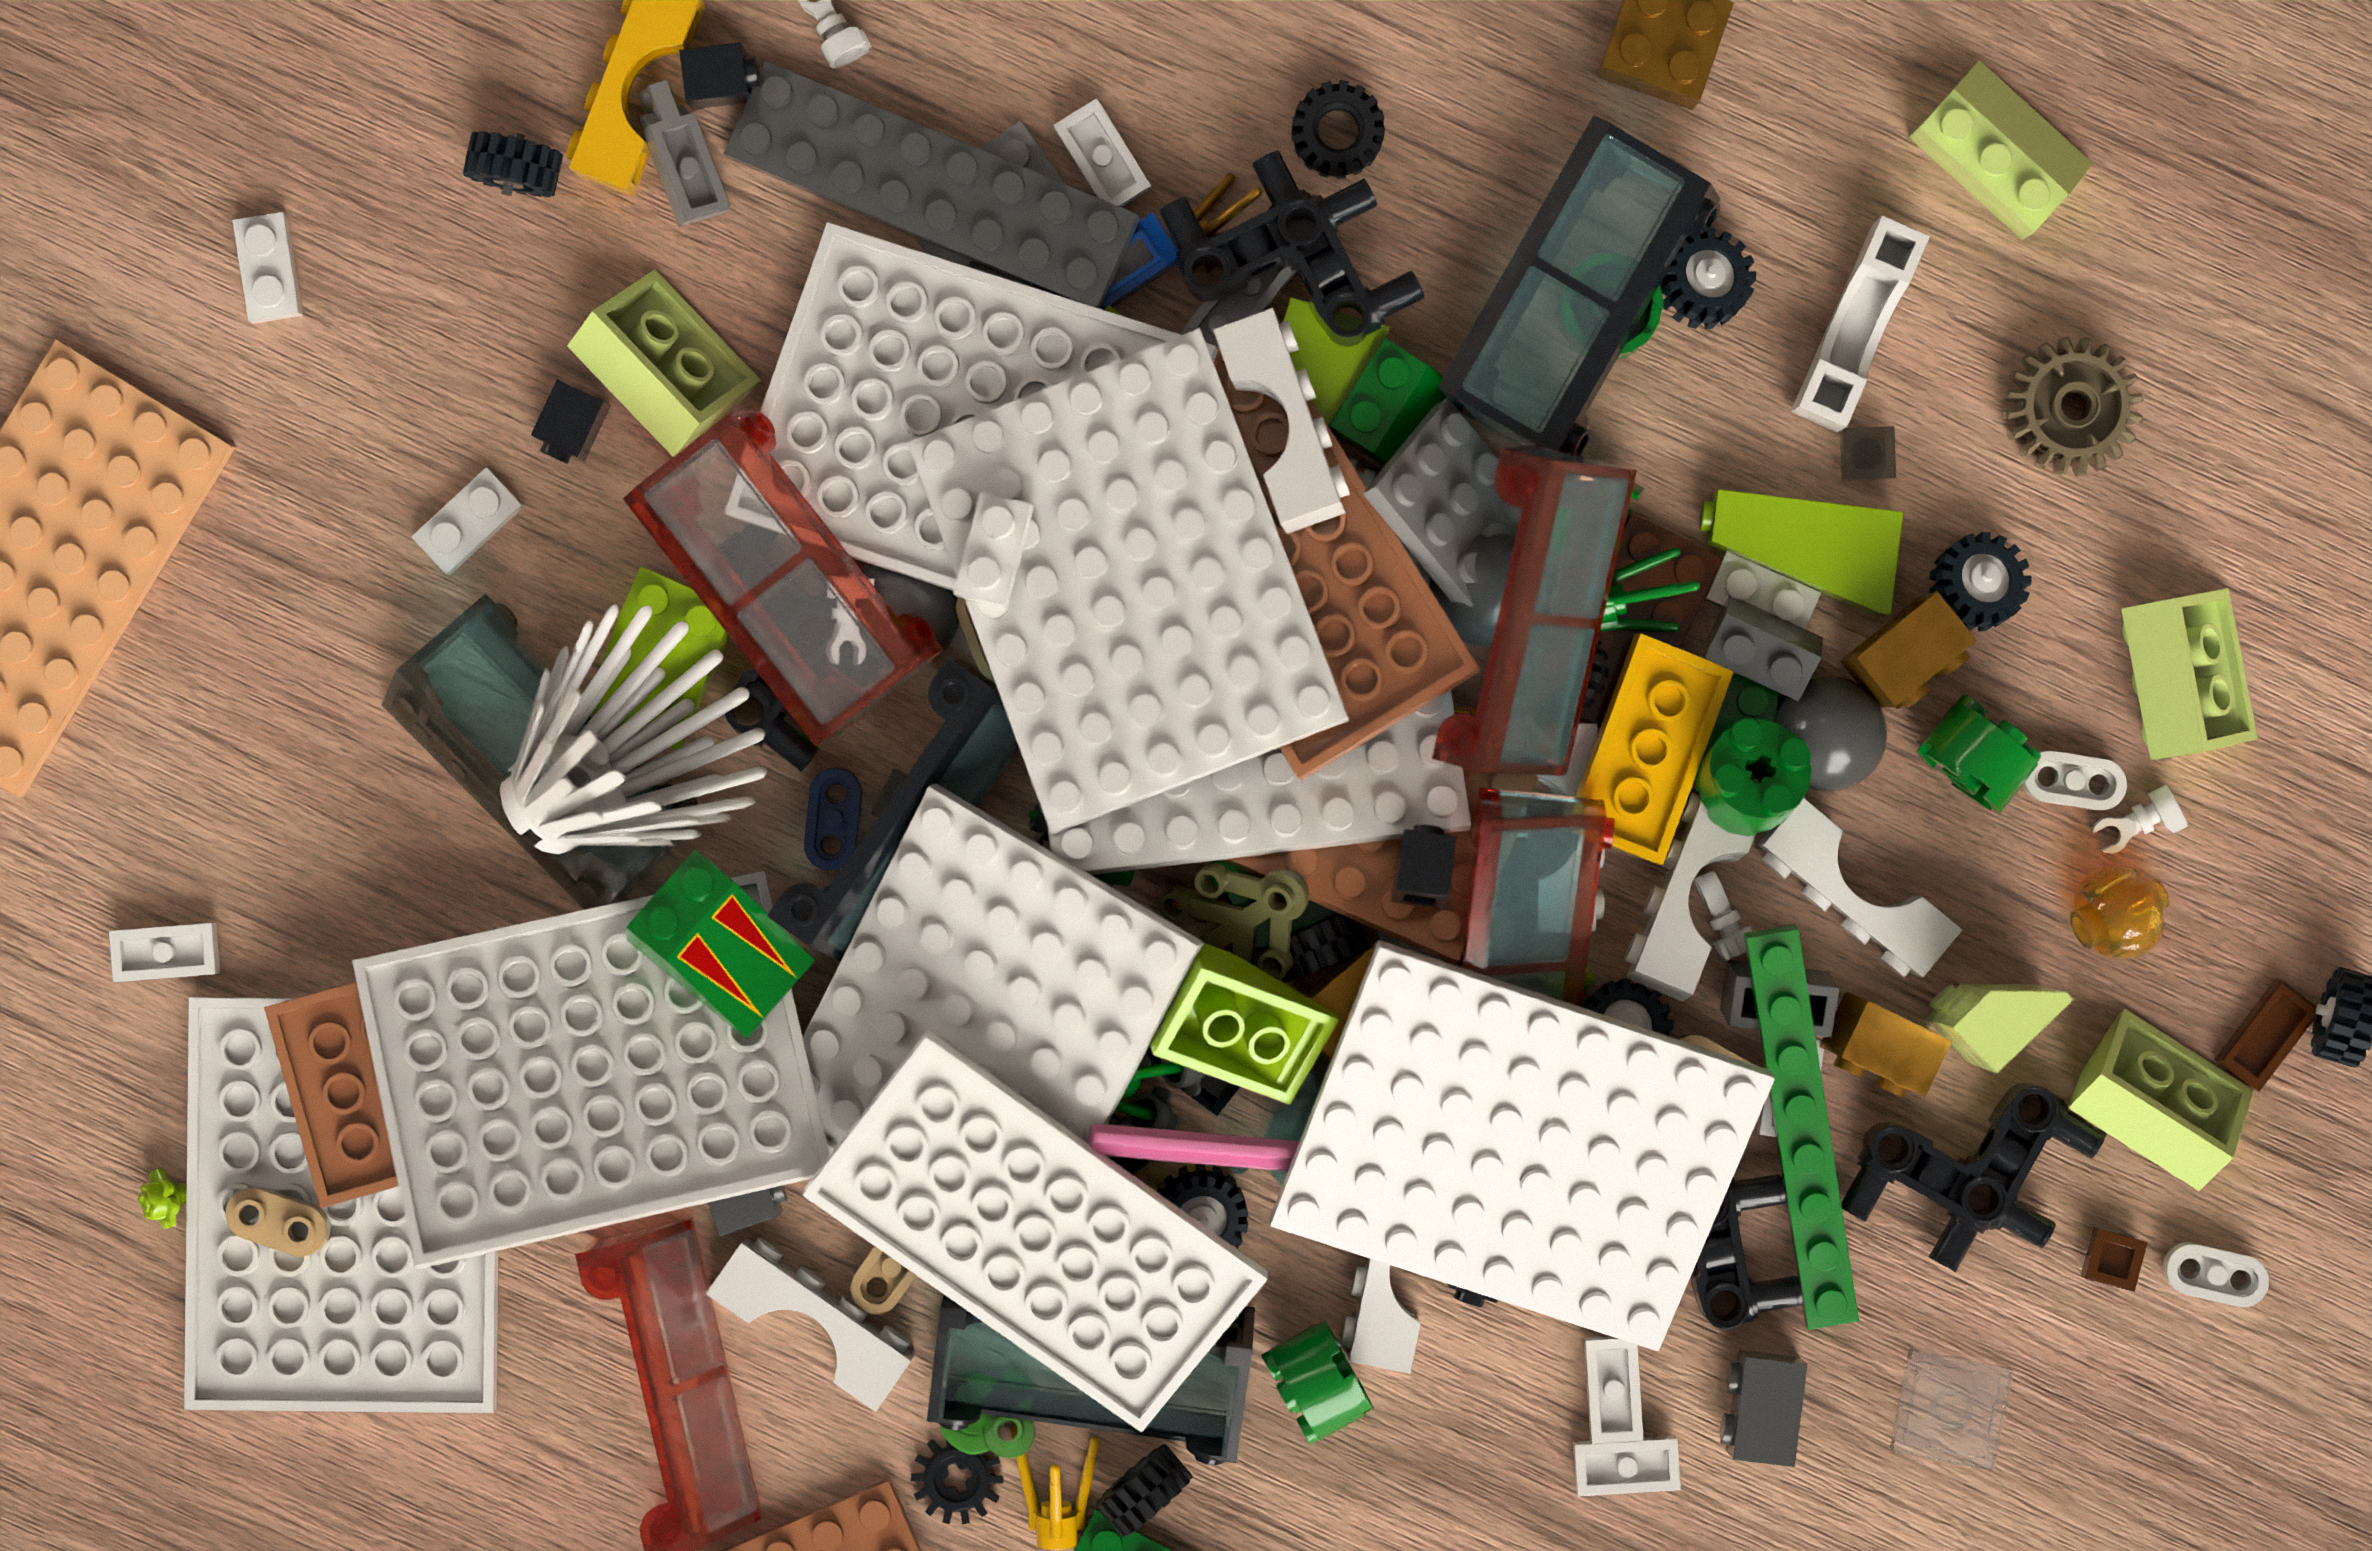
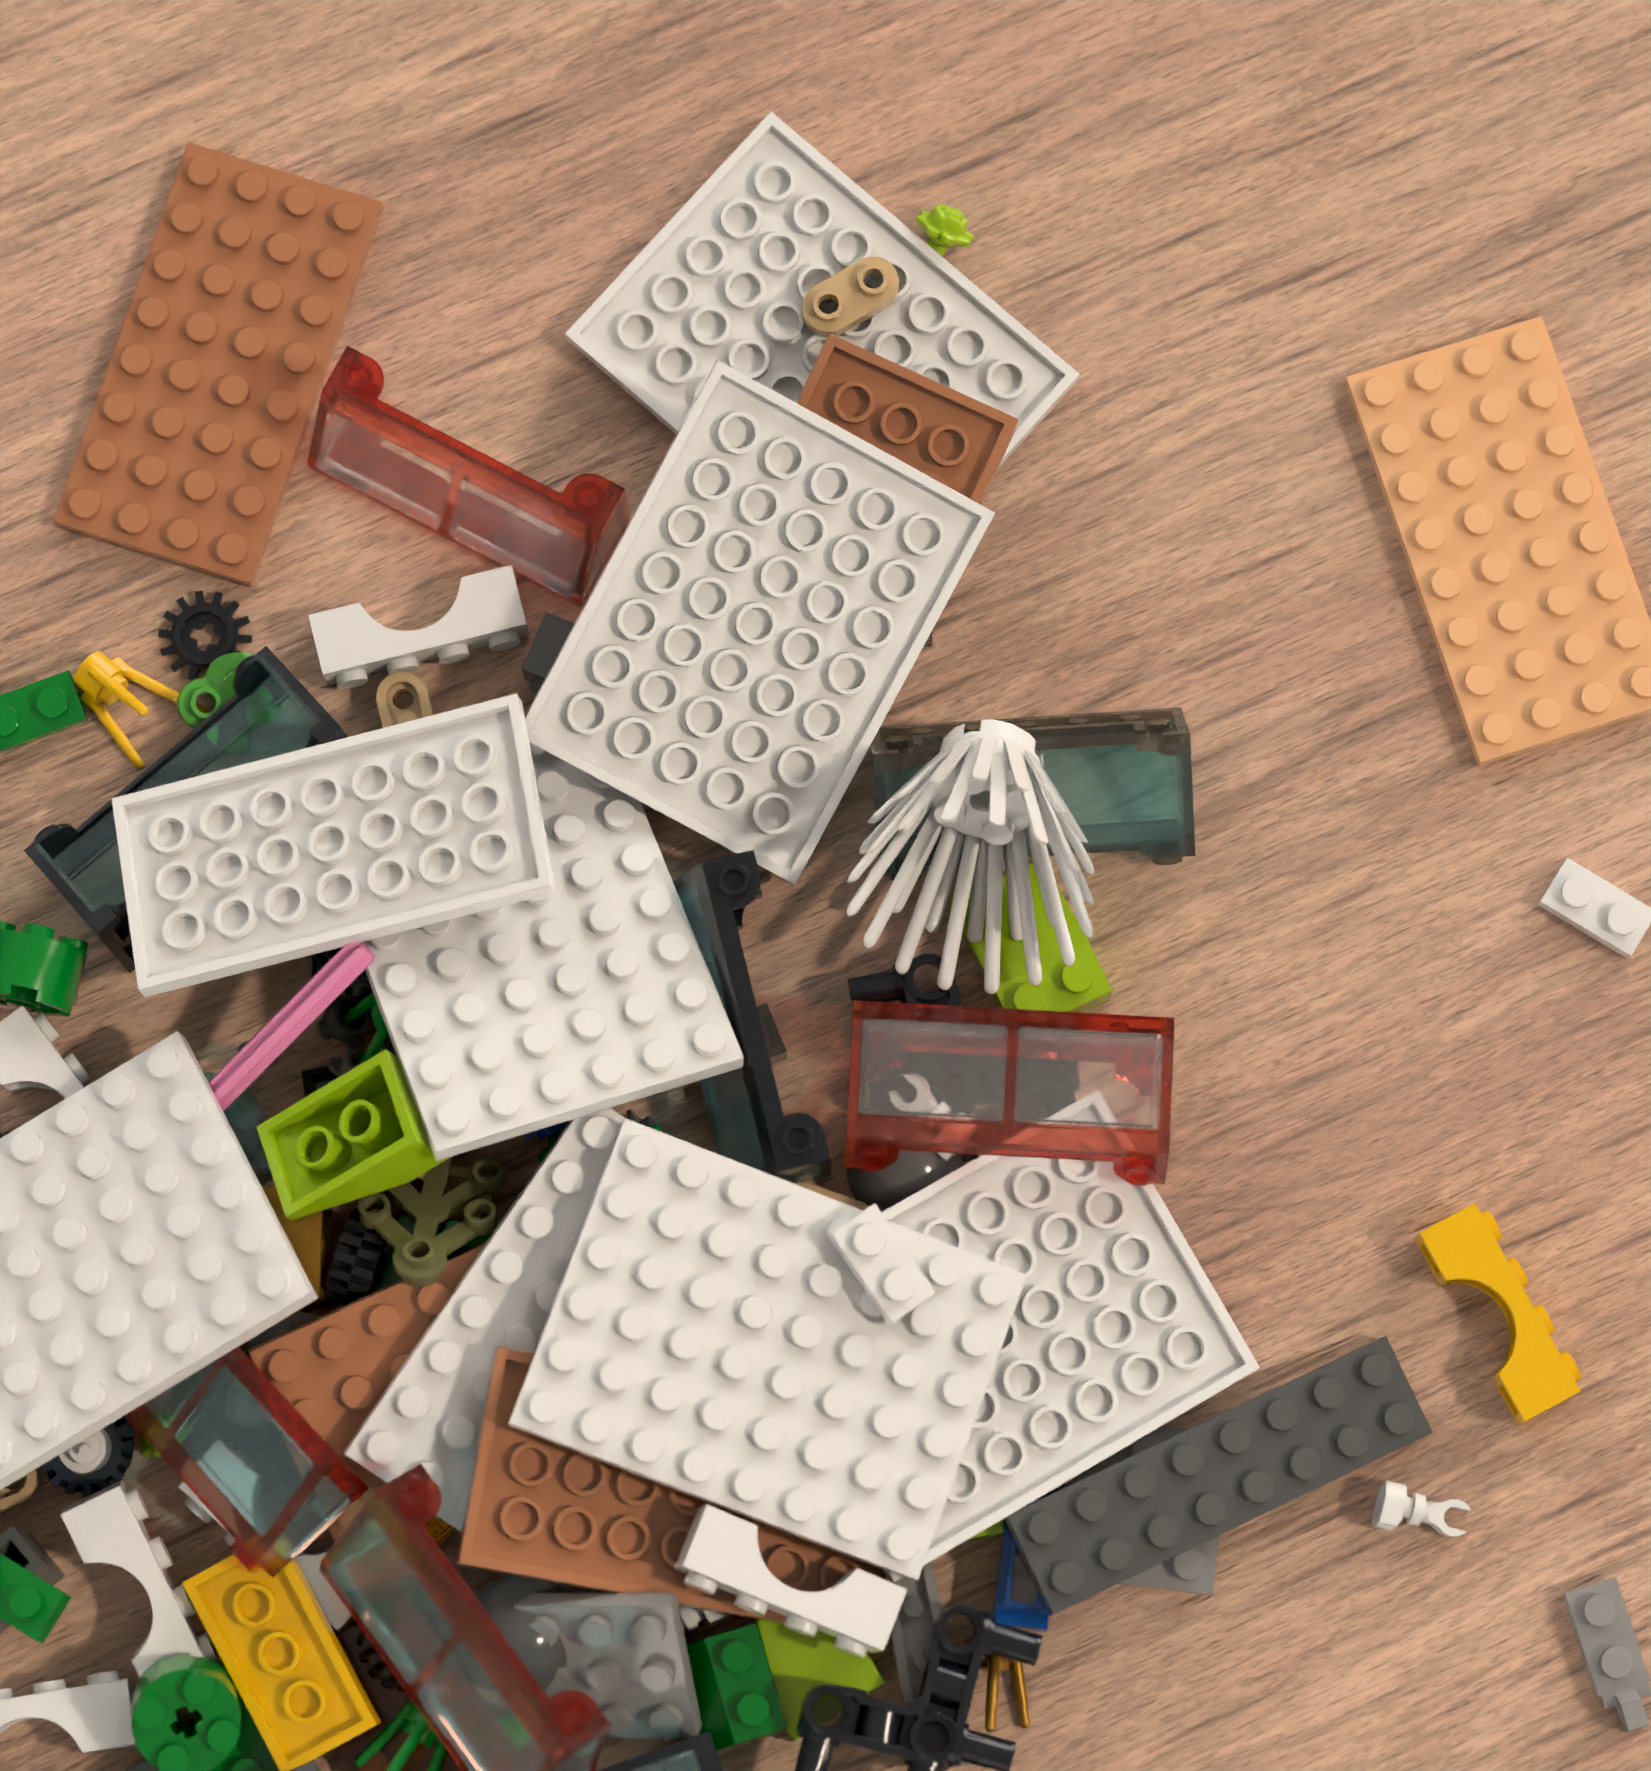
camera: 130 degrees right, 10 degrees down
(164, 952) = (1131, 386): white plate -> none
(467, 521) = (1266, 893): white plate -> none
(512, 164) = (1515, 1162): black wheel -> none
(569, 422) = (1274, 1035): black brick -> none
(662, 362) = (1260, 1148): yellowish green slope -> none
(681, 157) = (1411, 1300): light grey hinge -> none
(718, 75) = (1451, 1384): black brick -> none
(718, 944) = (764, 797): green slope -> none
(832, 818) = (790, 974): dark blue plate -> none
(1102, 155) = (1128, 1633): white plate -> none
(1144, 1490) = (67, 765): black tyre -> none
(1210, 1200) = (238, 1002): black wheel -> none
(1423, 867) = (344, 1387): black brick -> none
(1723, 917) = (99, 1601): white piece -> none

